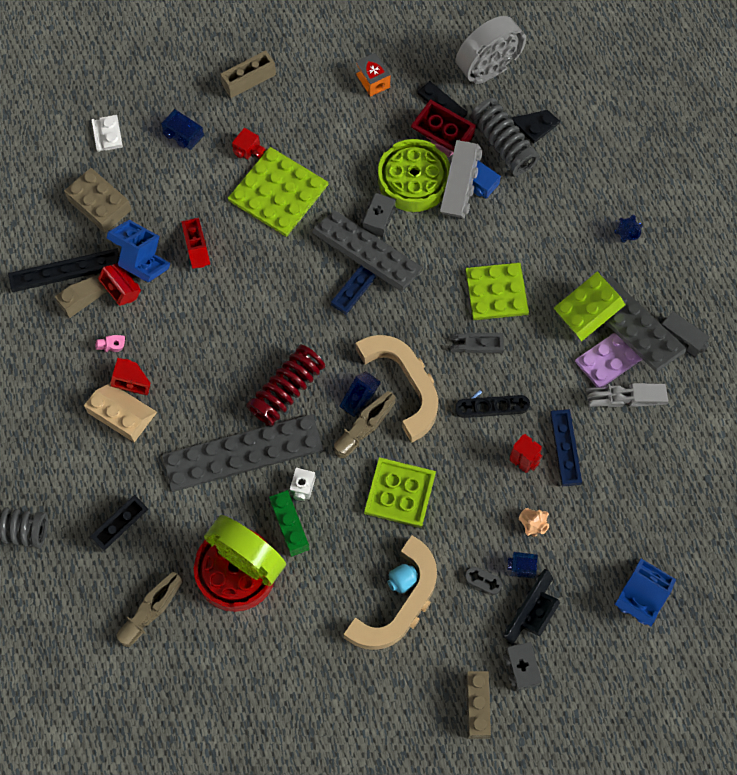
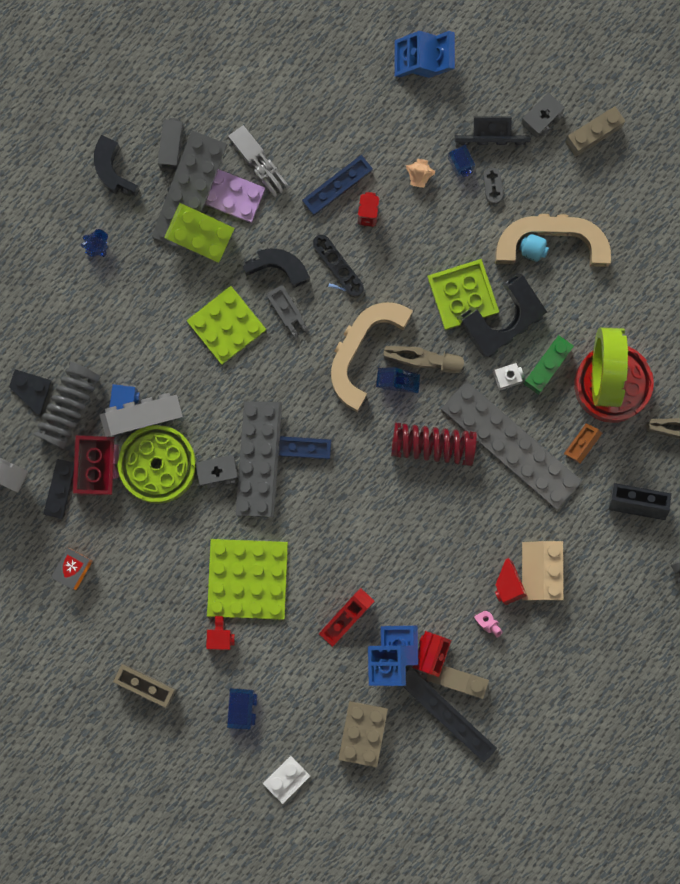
camera: 120 degrees left, 15 degrees up
(201, 509) = (583, 443): none -> dark orange plate
(345, 487) = (527, 310): none -> black arch
(518, 366) = (282, 260): none -> black arch
(690, 271) = (103, 161): none -> black arch

